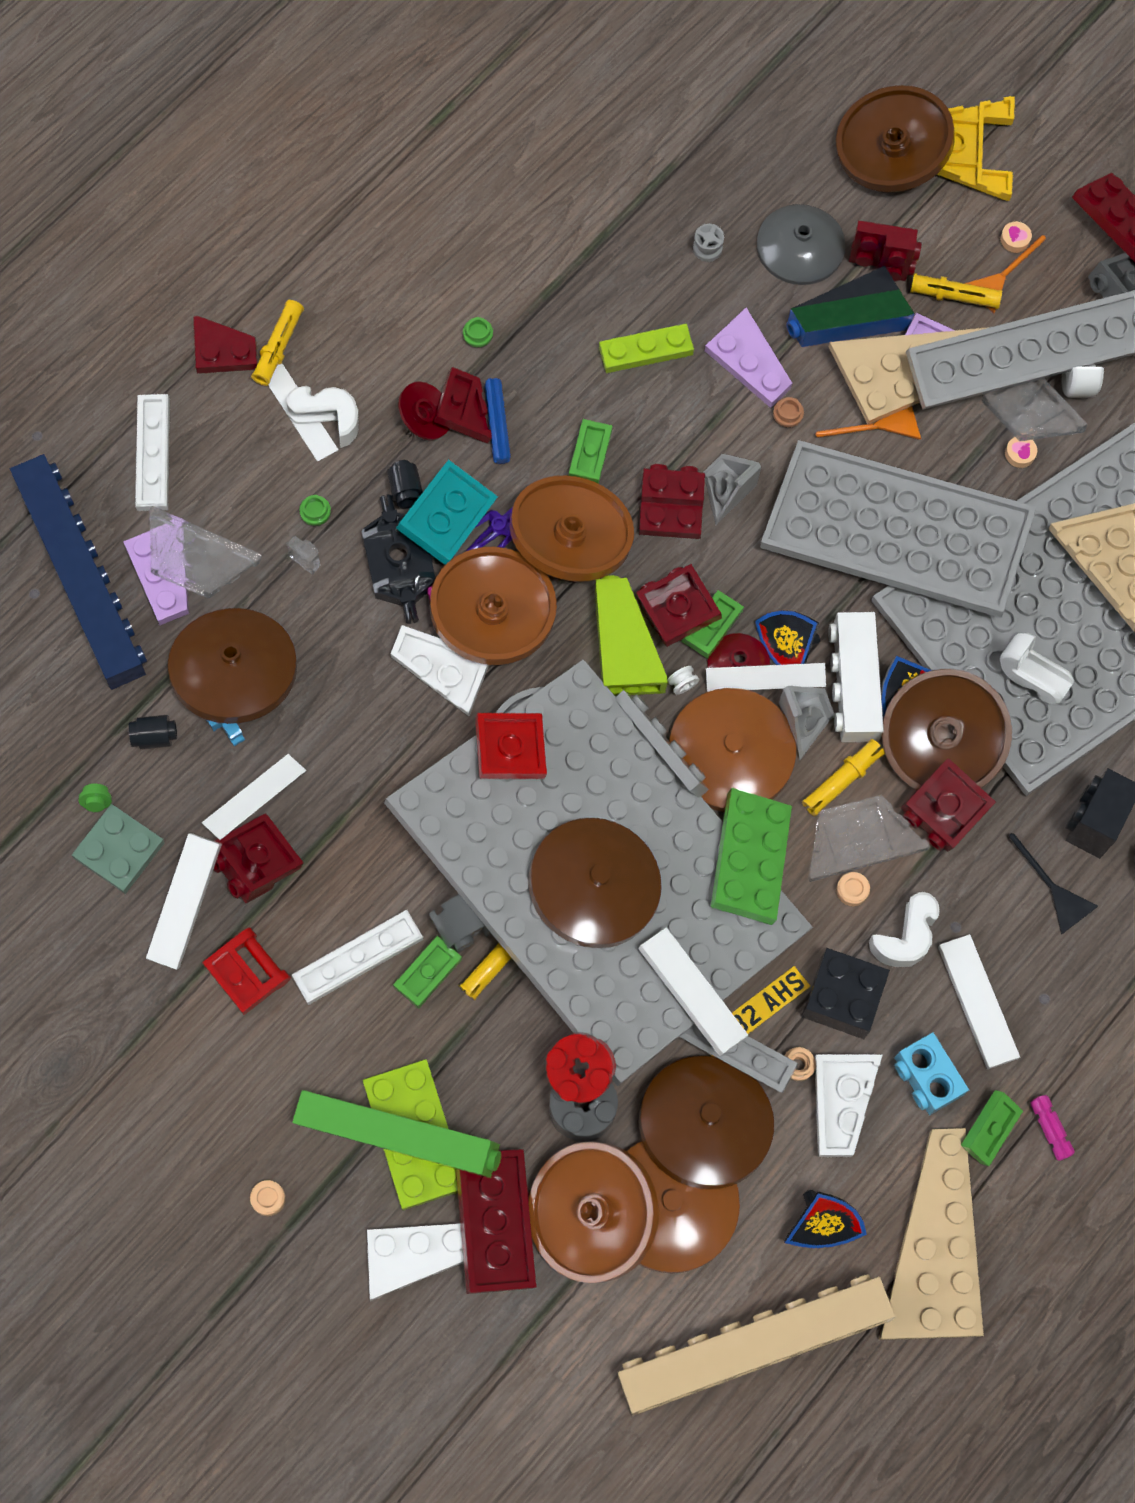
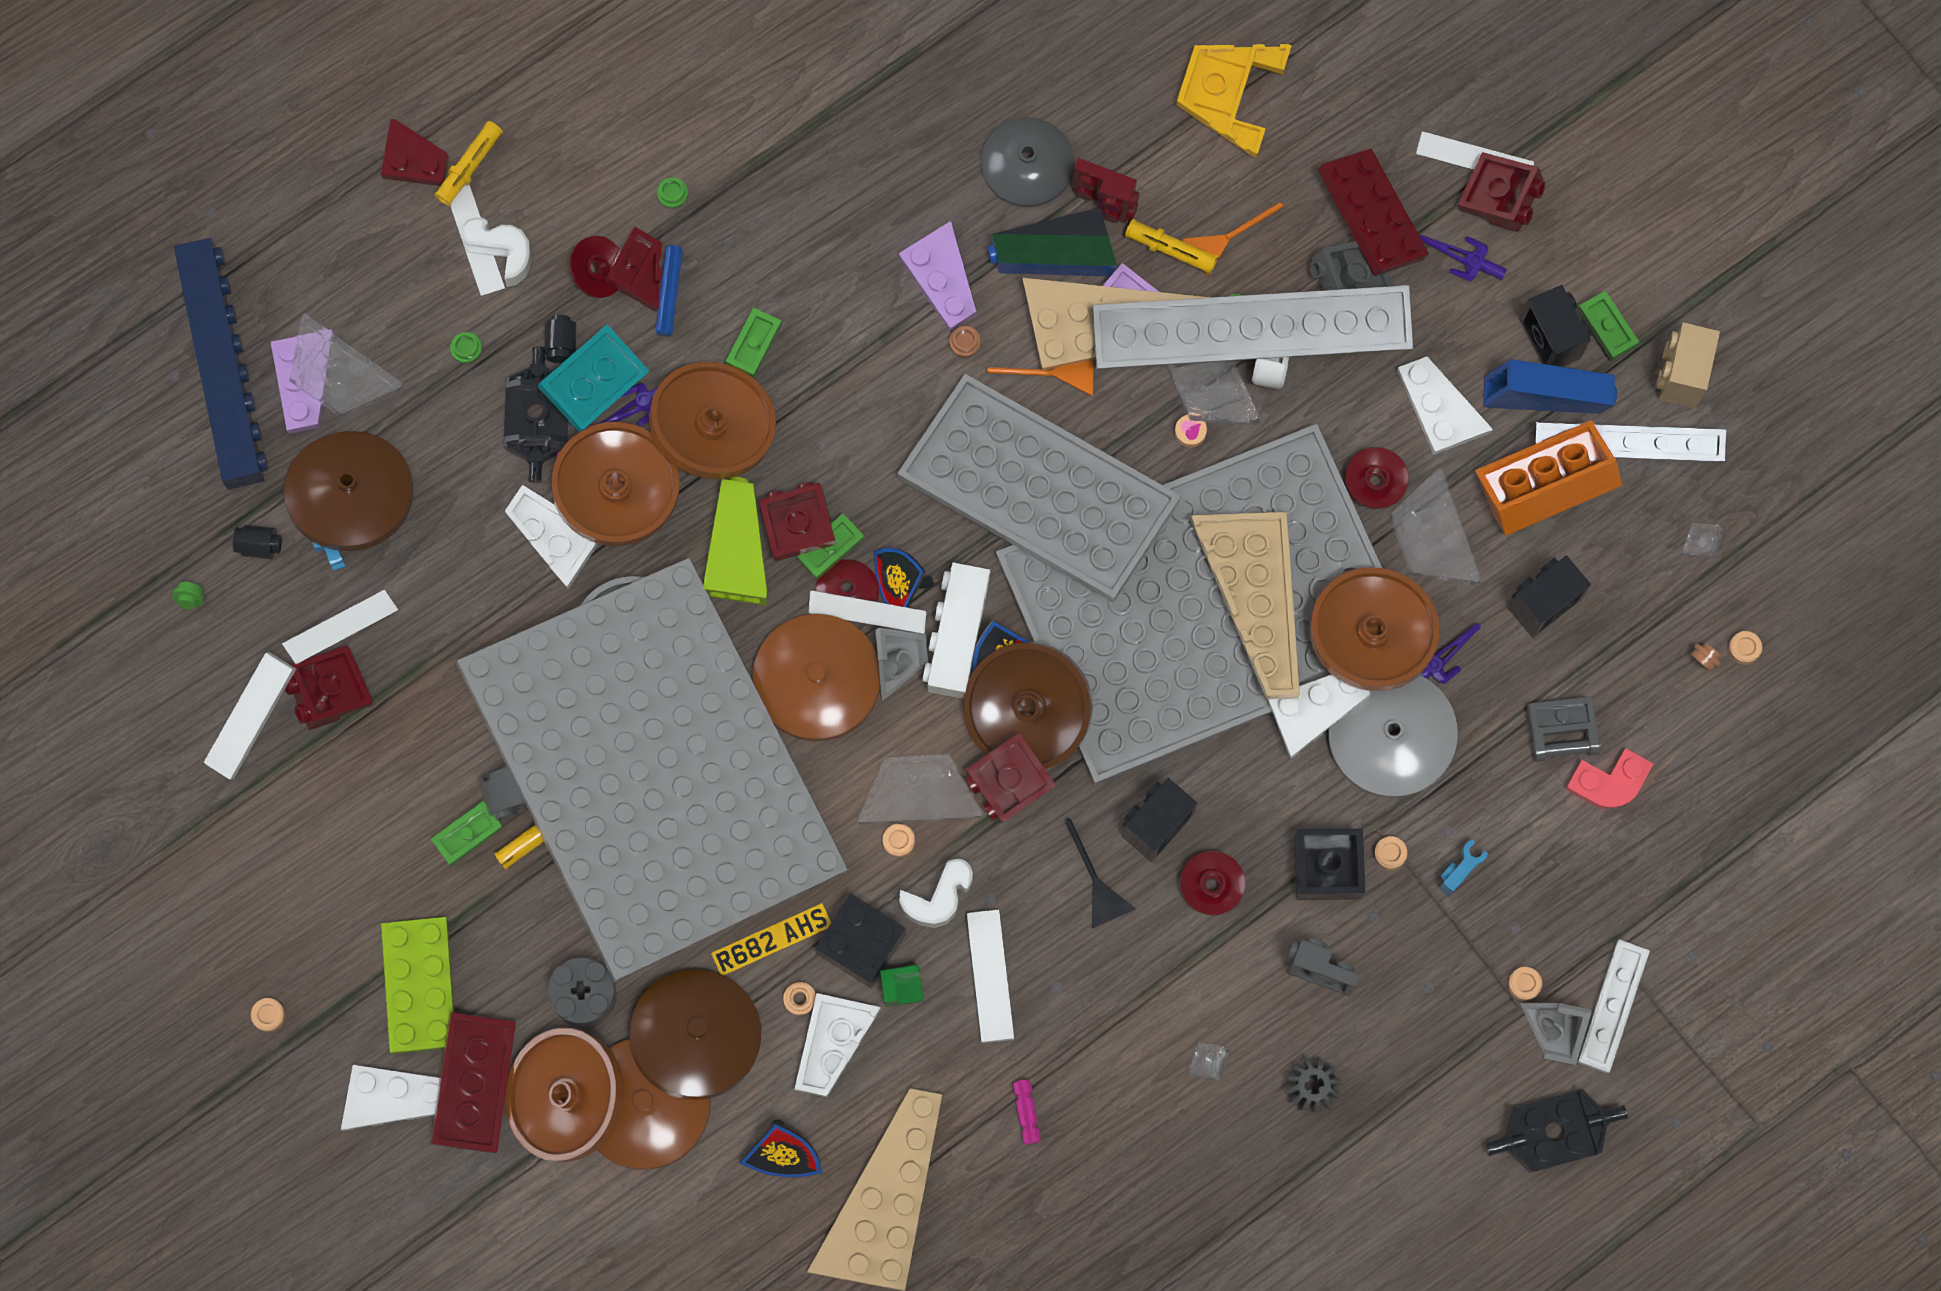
camera: 15 degrees right, 5 degrees up
(118, 849) = (200, 650): sand green plate -> none
(152, 452) = (319, 253): white tile -> none
(237, 977) = (285, 798): red plate -> none
(304, 554) = (444, 390): clear plate -> none
(357, 957) = (404, 804): white tile -> none
(397, 1134) = (398, 982): bright green brick -> none
(510, 746) = (590, 633): red plate -> none
(571, 1084) = (563, 957): red plate -> none
(594, 883) = (639, 783): reddish brown dish -> none
(646, 348) = (839, 243): lime plate -> none
(670, 752) = (749, 666): light grey plate -> none
(672, 502) = (822, 412): dark red plate -> none
(683, 680) = (785, 597): white bush -> none
(693, 991) = (707, 908): white tile -> none
(707, 235) = (930, 136): light grey wheel -> none
(729, 482) = (884, 404): light grey slope -> none
(750, 1058) = (745, 975): light grey plate -> none
(751, 856) = (803, 788): bright green plate -> none
(756, 1345) = (686, 1251): tan brick -> none
(853, 768) = (918, 728): yellow pin -> none
(895, 138) = (1151, 69): reddish brown dish -> none
(895, 1029) = (901, 986): none -> green panel
(938, 1070) = (930, 1034): medium azure brick -> none
(992, 1128) = (966, 1099): bright green plate -> none
(1016, 237) = (1251, 199): light nougat tile -> none
(1034, 670) = (1131, 662): white animal -> none

